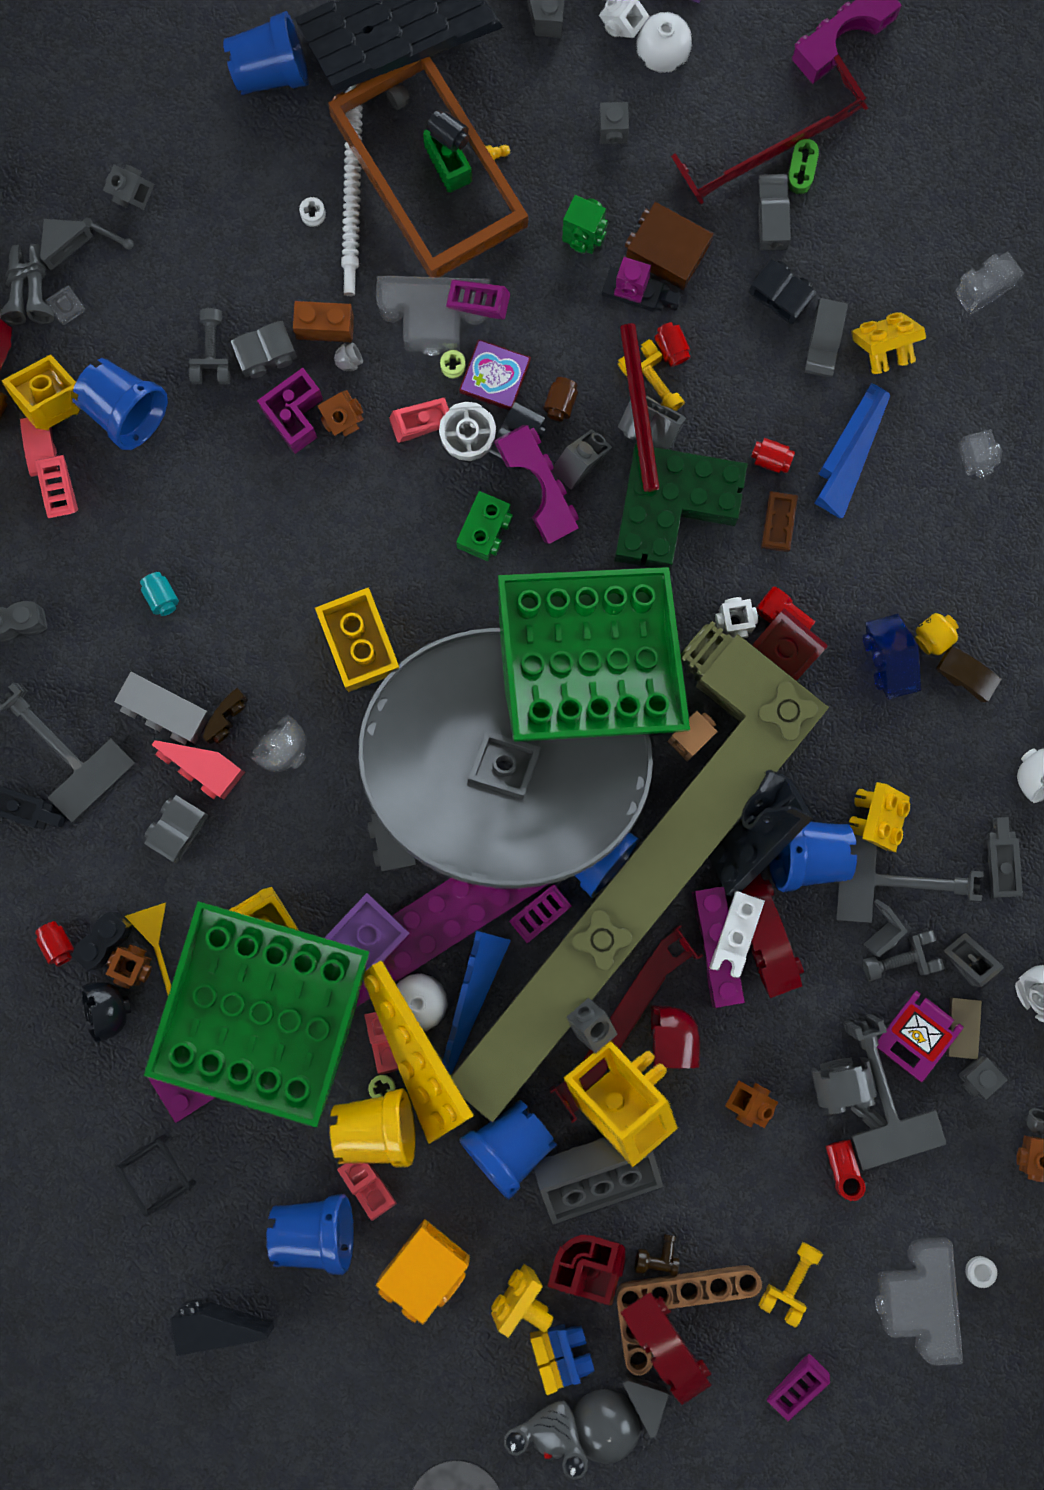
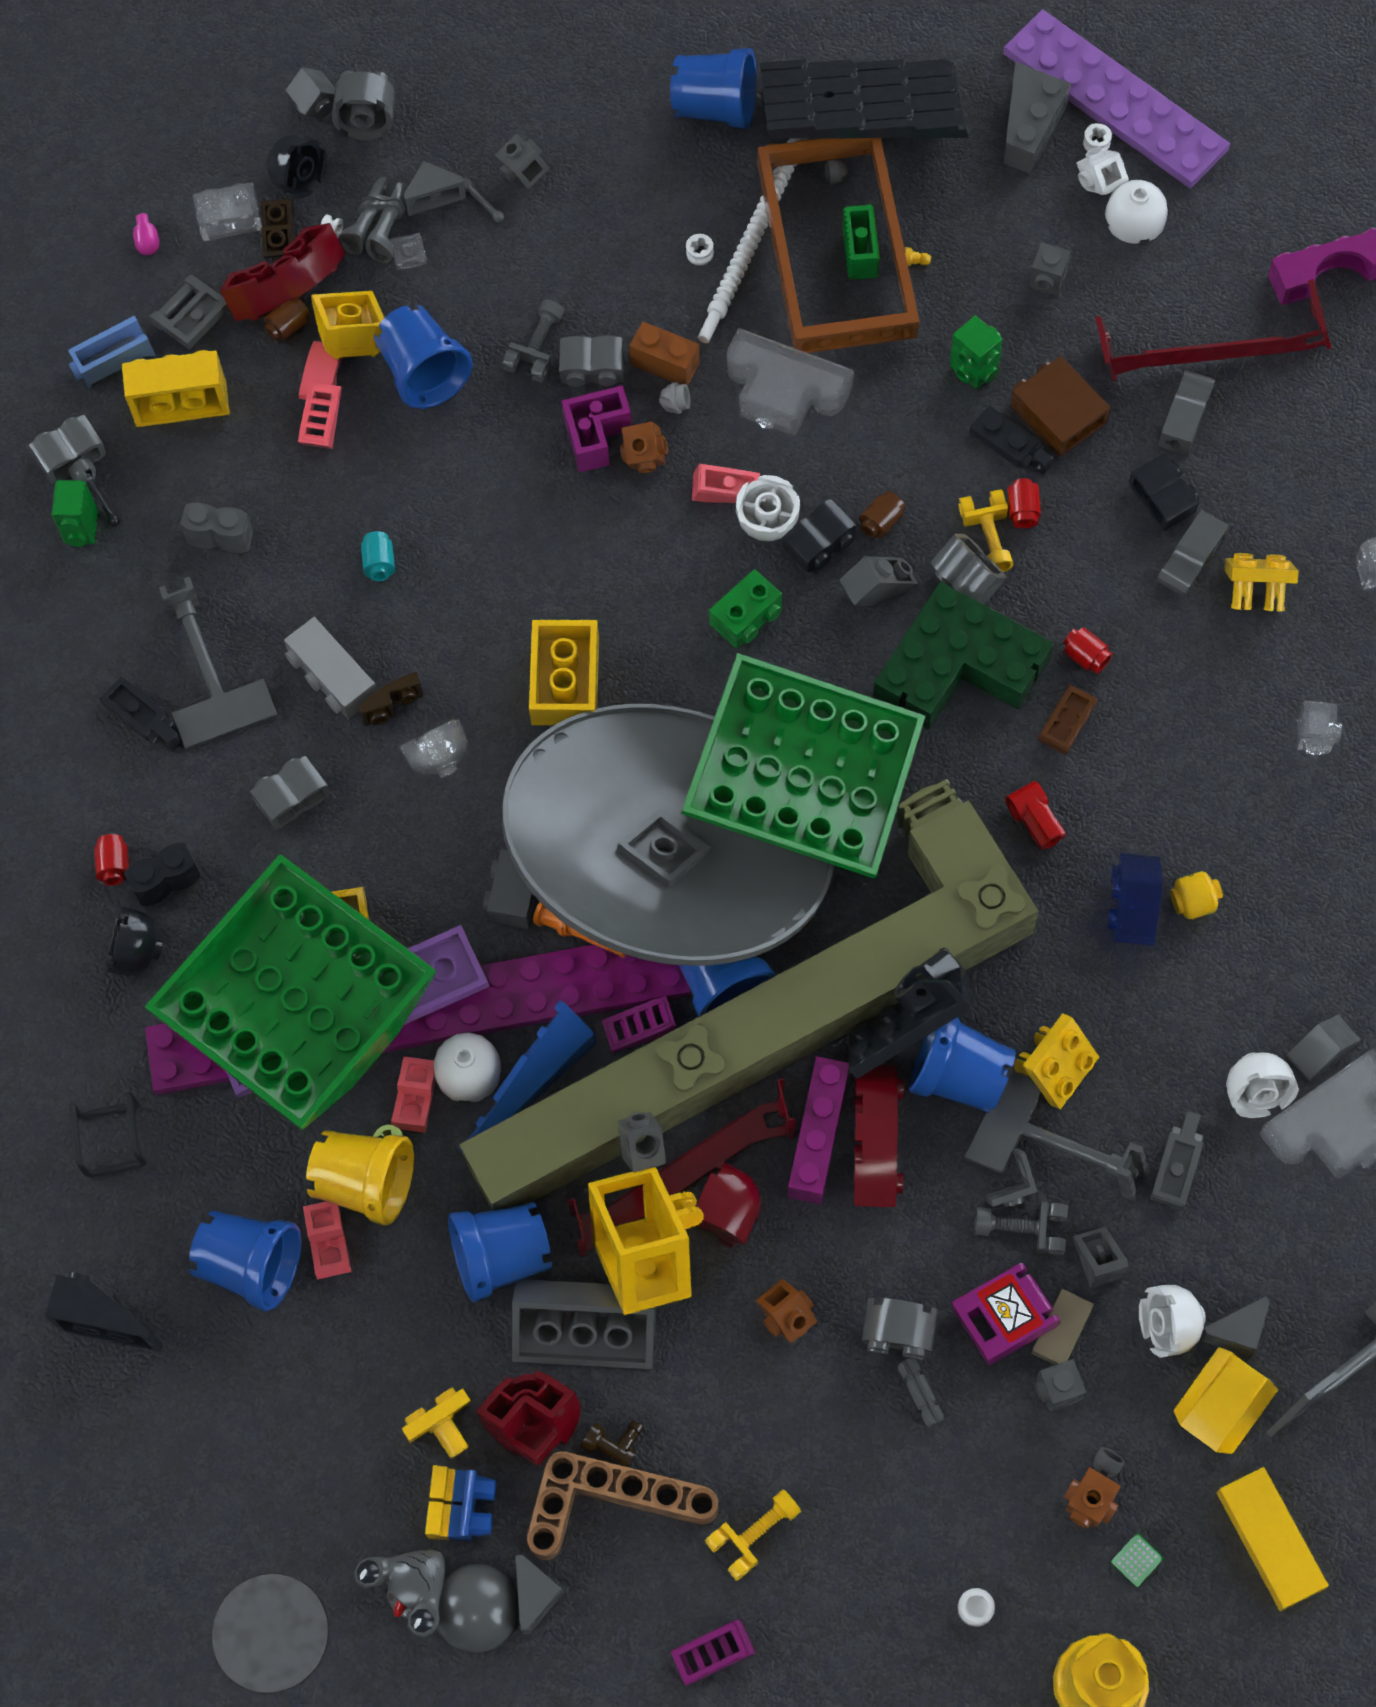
camera: 25 degrees right, 15 degrees down
(119, 970) = (178, 909): dark orange brick -> none
(149, 924) = (218, 882): yellow piece -> none
(206, 766) = (350, 741): coral slope -> none
(423, 1273) = (346, 1345): light orange brick -> none
(424, 1075) = (440, 1131): yellow wing -> none
(445, 359) = (788, 449): yellowish green bush -> none
(448, 130) = (869, 211): black brick -> none
(495, 375) = (822, 468): tile -> none
(497, 312) = (848, 397): magenta slope -> none
(553, 516) = (814, 543): magenta arch -> none
(632, 279) = (1004, 421): magenta brick -> none
(639, 407) = (958, 544): dark red axle -> none
(672, 1357) = (580, 1539): dark red brick -> none
(690, 742) = (880, 896): medium nougat brick -> none
(737, 932) = (842, 1111): white plate -> none
(743, 611) = (982, 793): white brick -> none
(790, 644) = (1027, 843): dark red plate -> none
(808, 166) = (1242, 382): bright green beam -> none
(844, 1167) = (864, 1425): red piece -> none
(850, 452) = (1175, 677): blue wedge -> none
(897, 1137) = (939, 1413): dark grey piece -> none
(924, 1301) = (894, 1610): clear brick -> none
(968, 672) = (1217, 949): dark brown slope -> none

